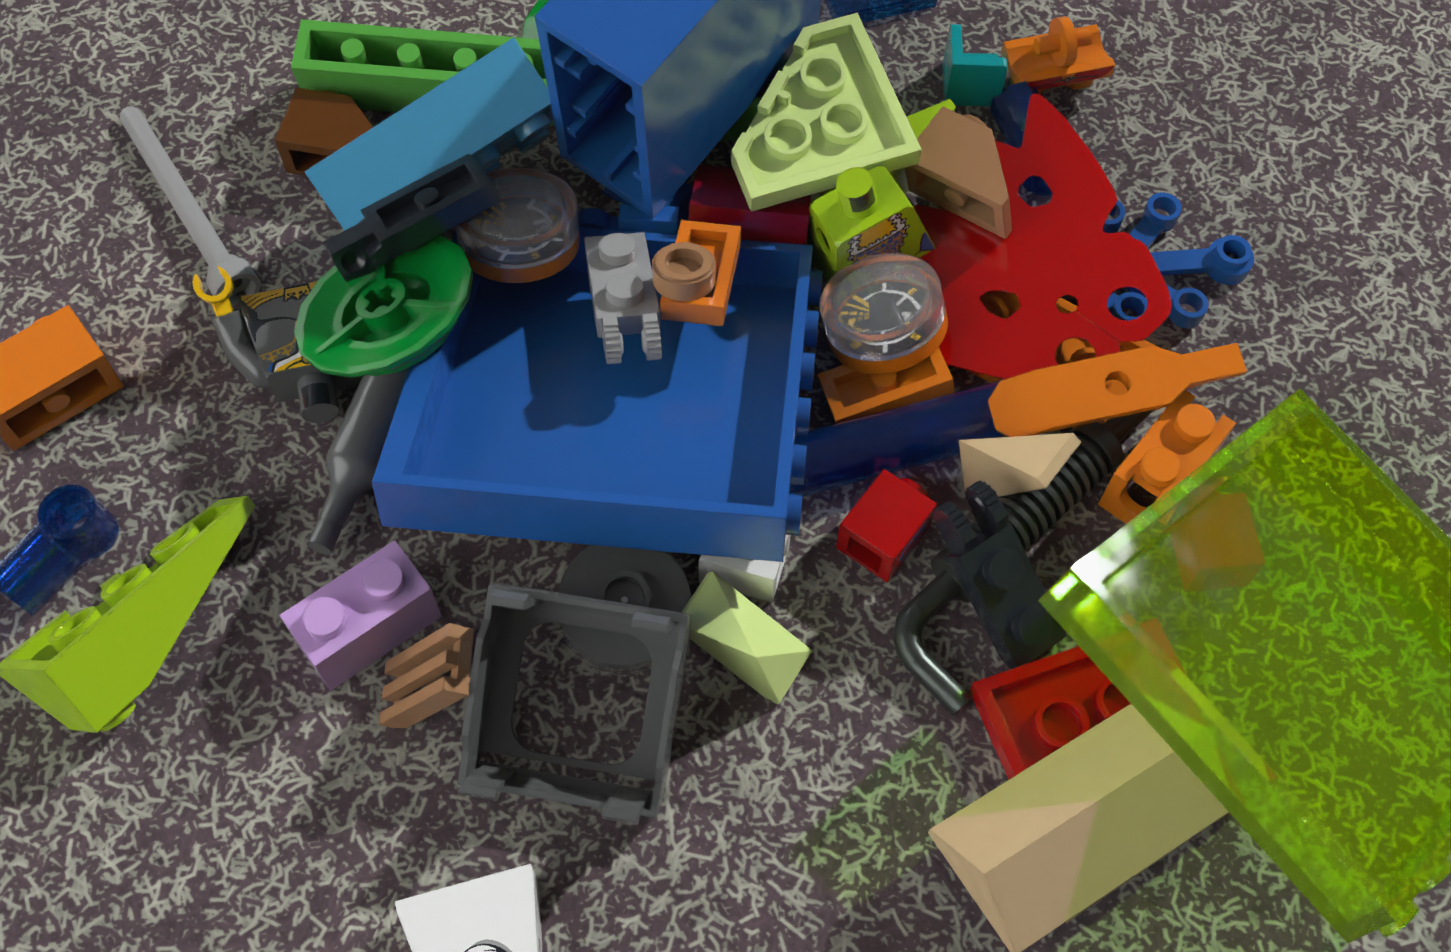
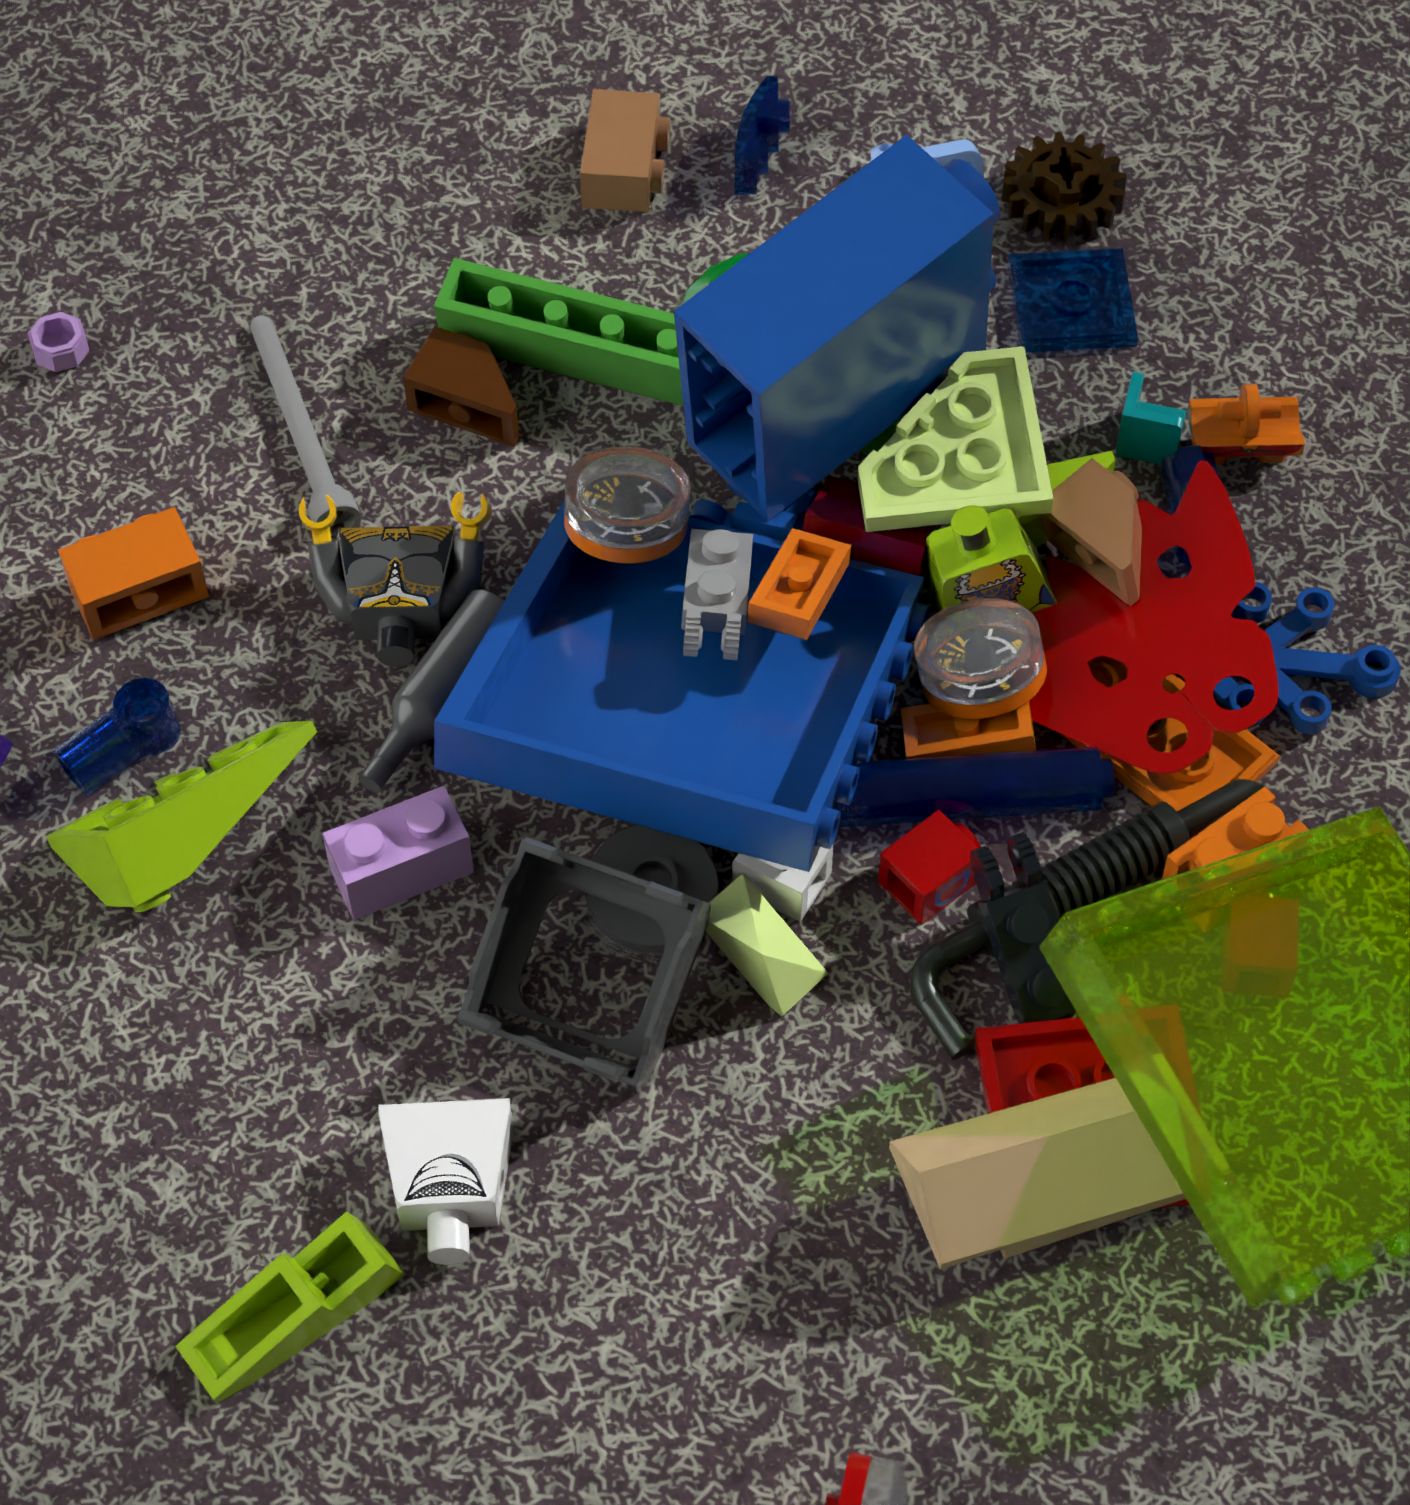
camera: 15 degrees right, 5 degrees down
(386, 316) = (479, 560): green piece -> none
(413, 217) = (524, 479): black hinge -> none
(424, 665) = (444, 919): medium nougat tile -> none
(477, 112) = (561, 412): dark azure brick -> none
(683, 271) = (778, 579): medium nougat tile -> none
(1015, 462) = (1067, 825): tan slope -> none
(1078, 395) = (1152, 770): orange piece -> none

